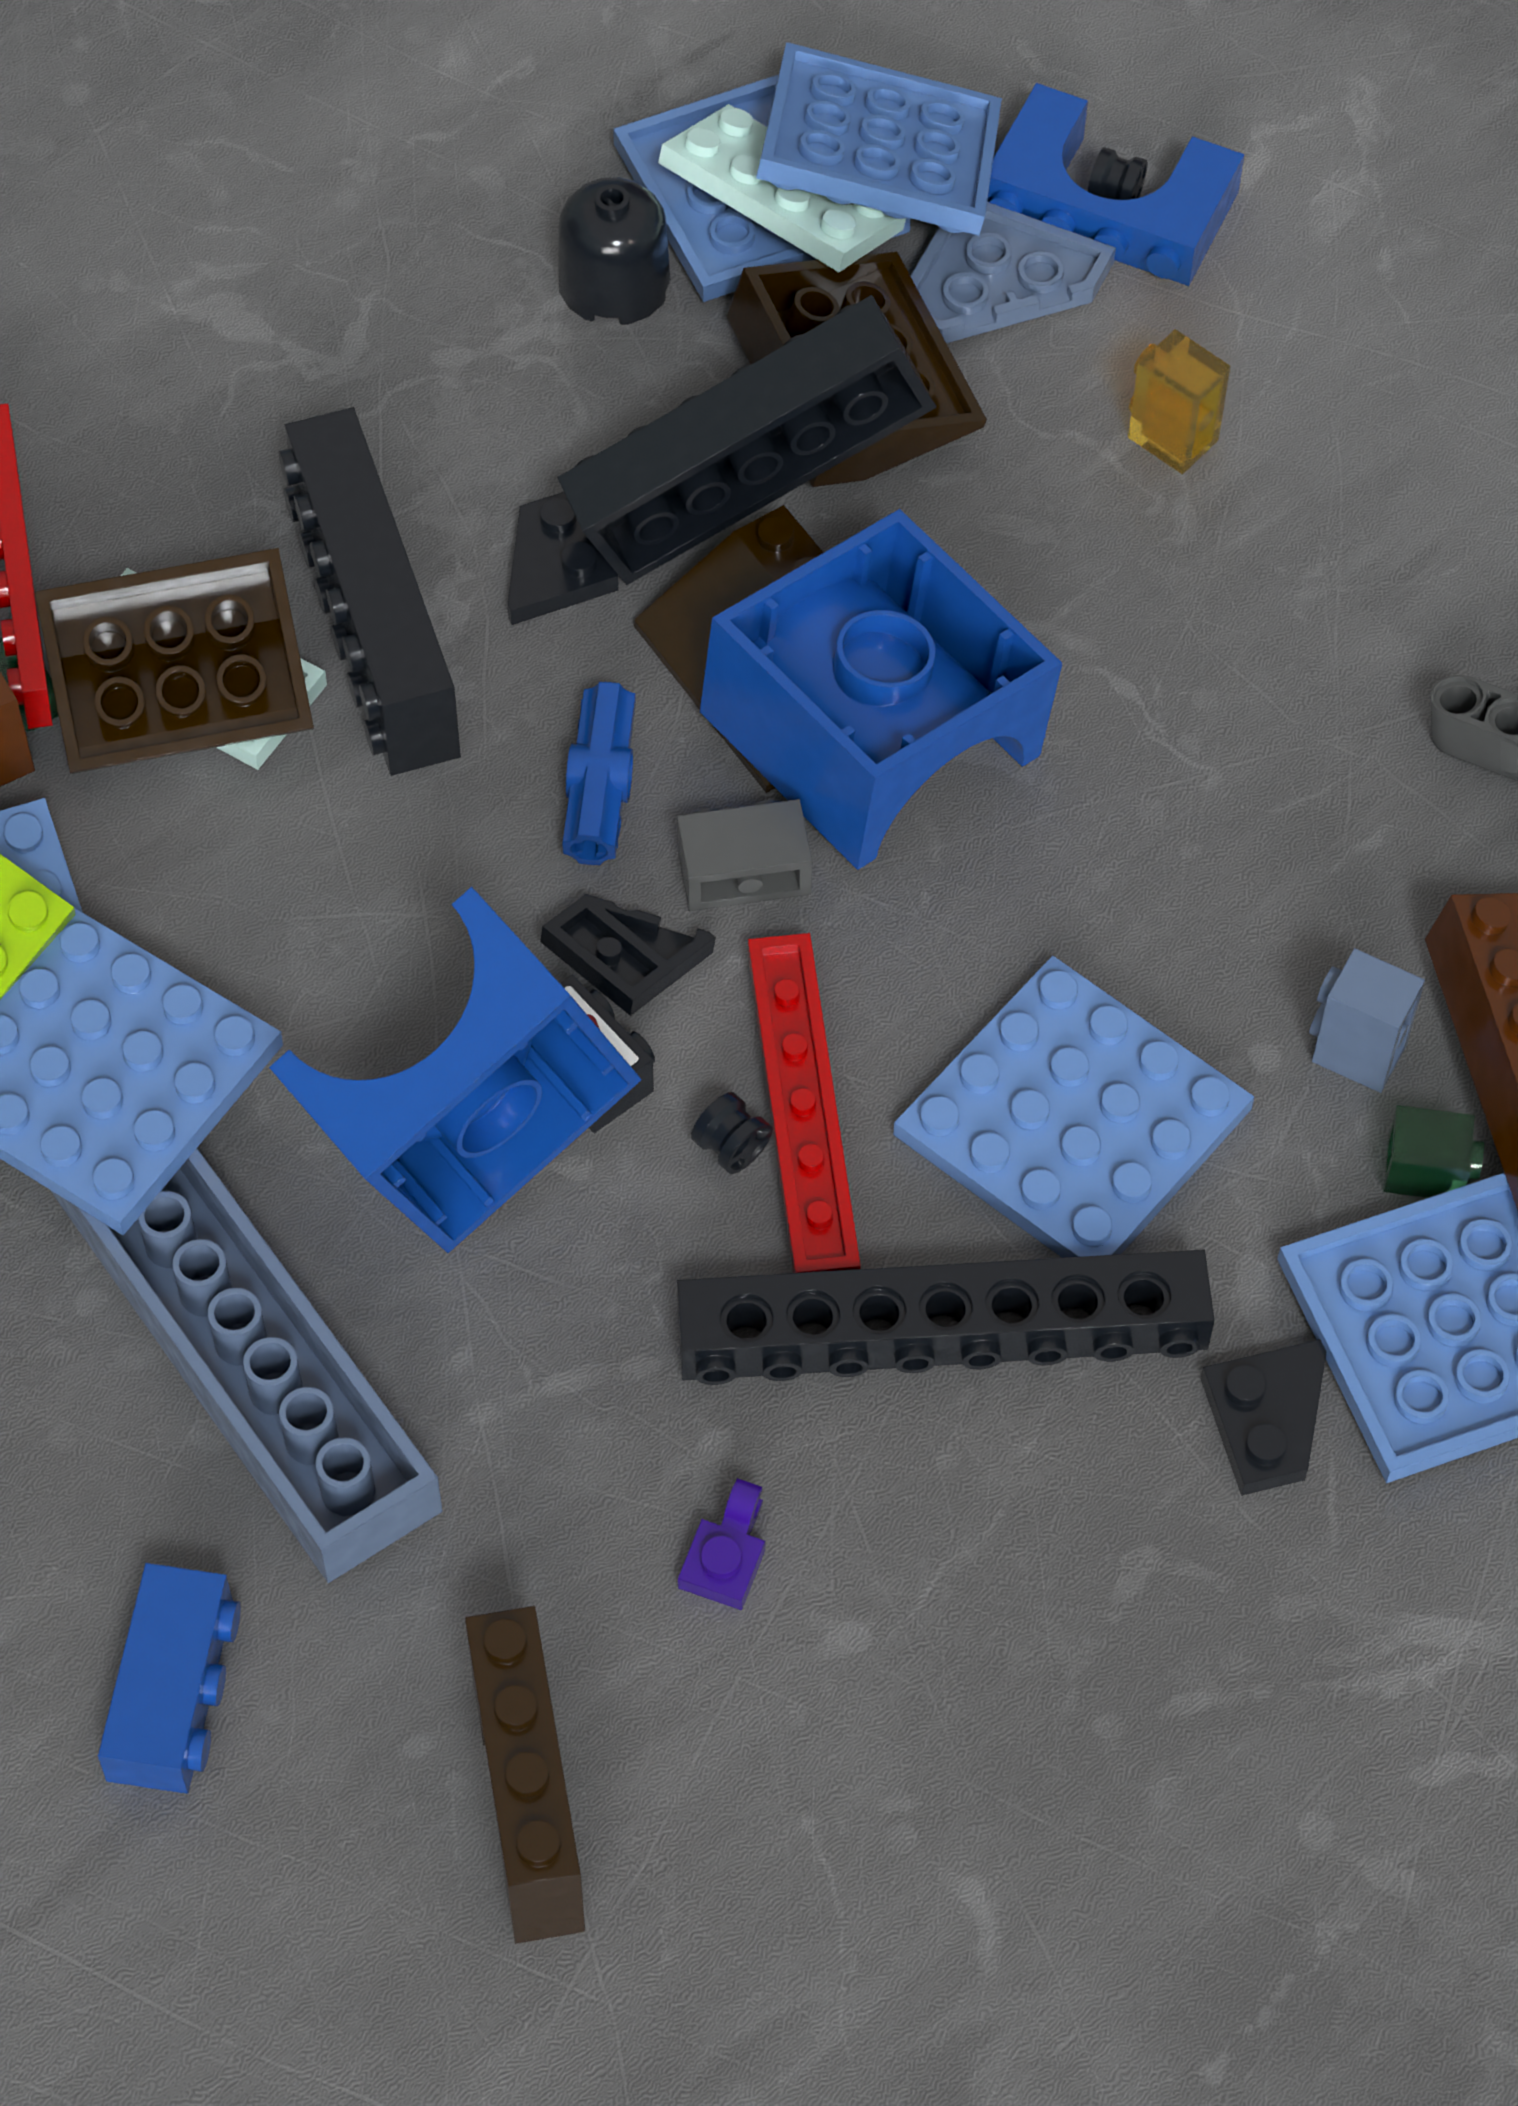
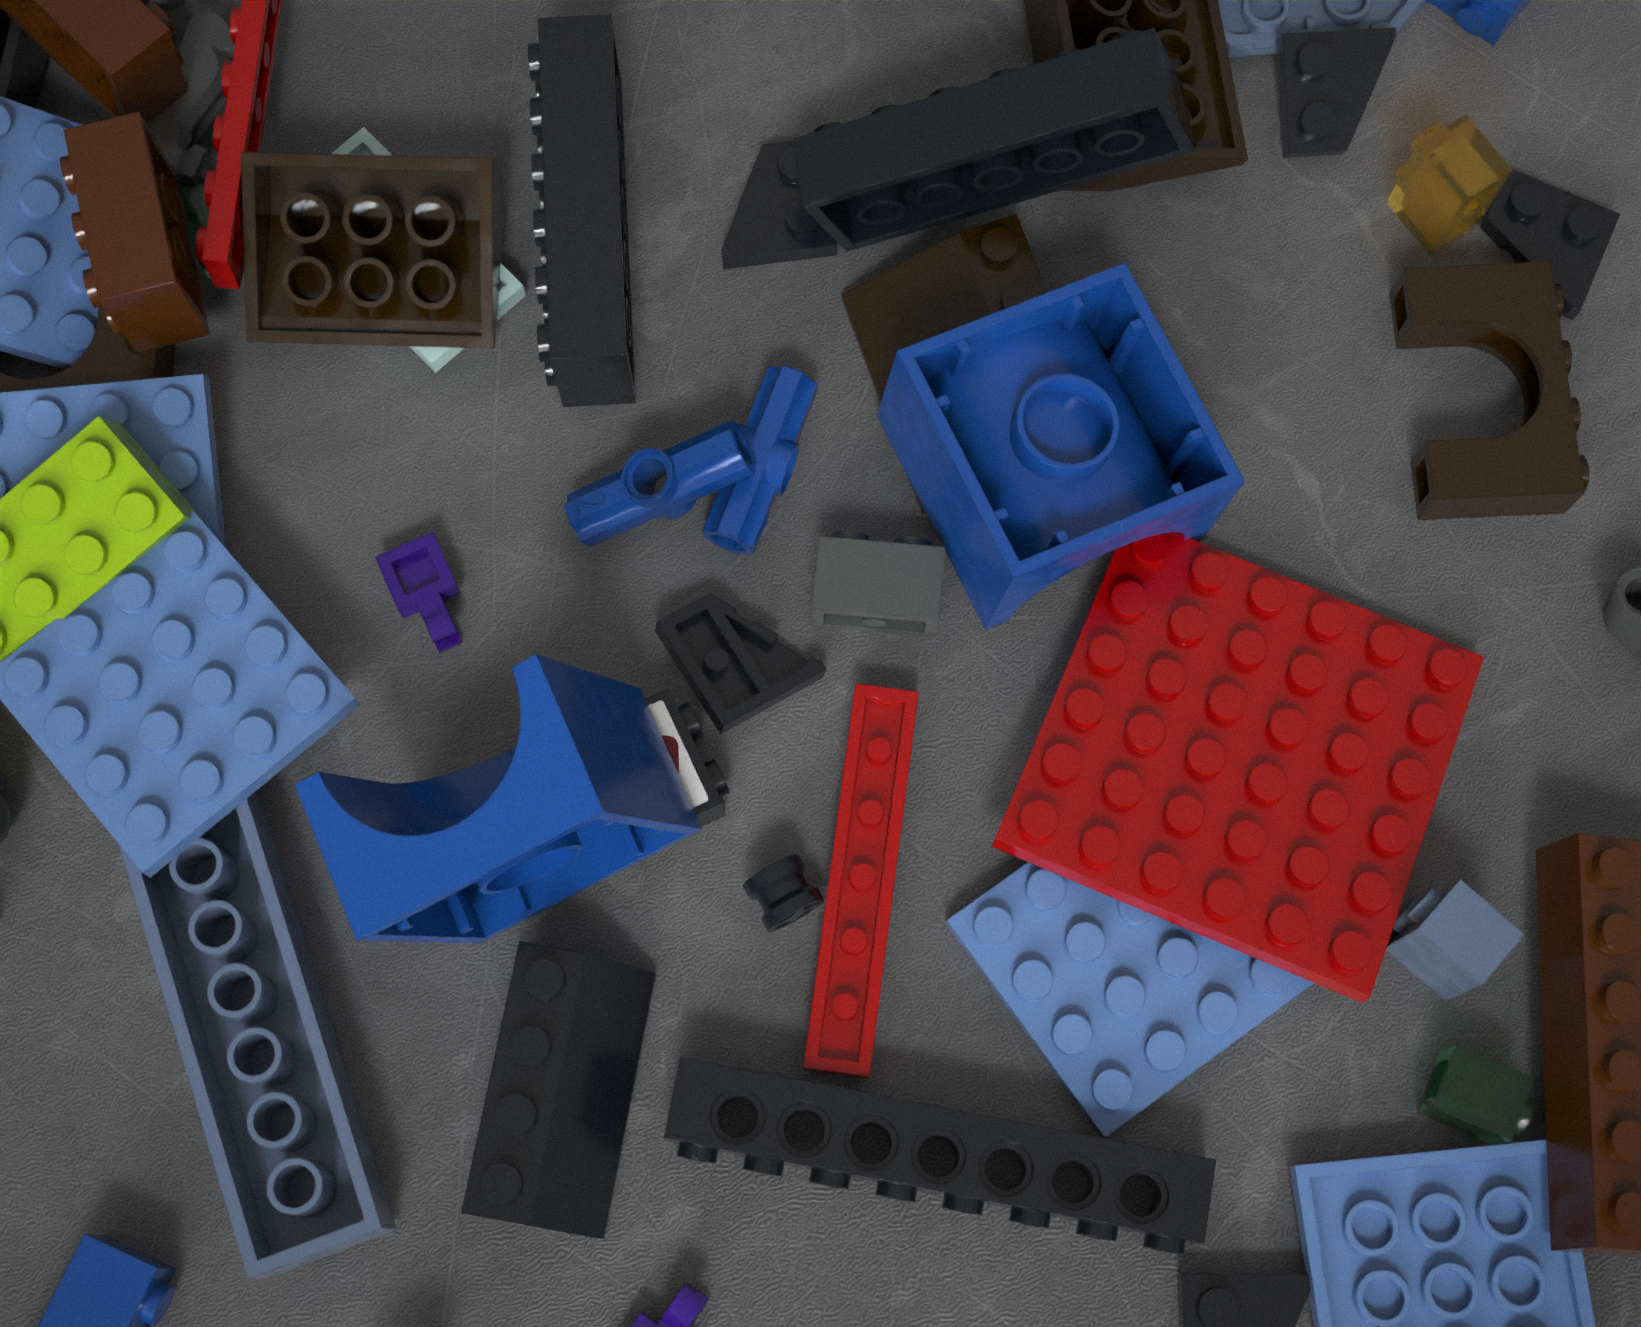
camera: 15 degrees right, 15 degrees up
(302, 947) = (421, 583): none -> dark purple plate
(487, 827) = (692, 471): none -> blue piece
(568, 1350) = (560, 1091): none -> black slope
(1042, 346) = (1327, 86): none -> black wing
(1129, 919) = (1243, 759): none -> red plate
(1274, 504) = (1514, 317): none -> dark brown arch
(1287, 431) = (1551, 225): none -> black wing

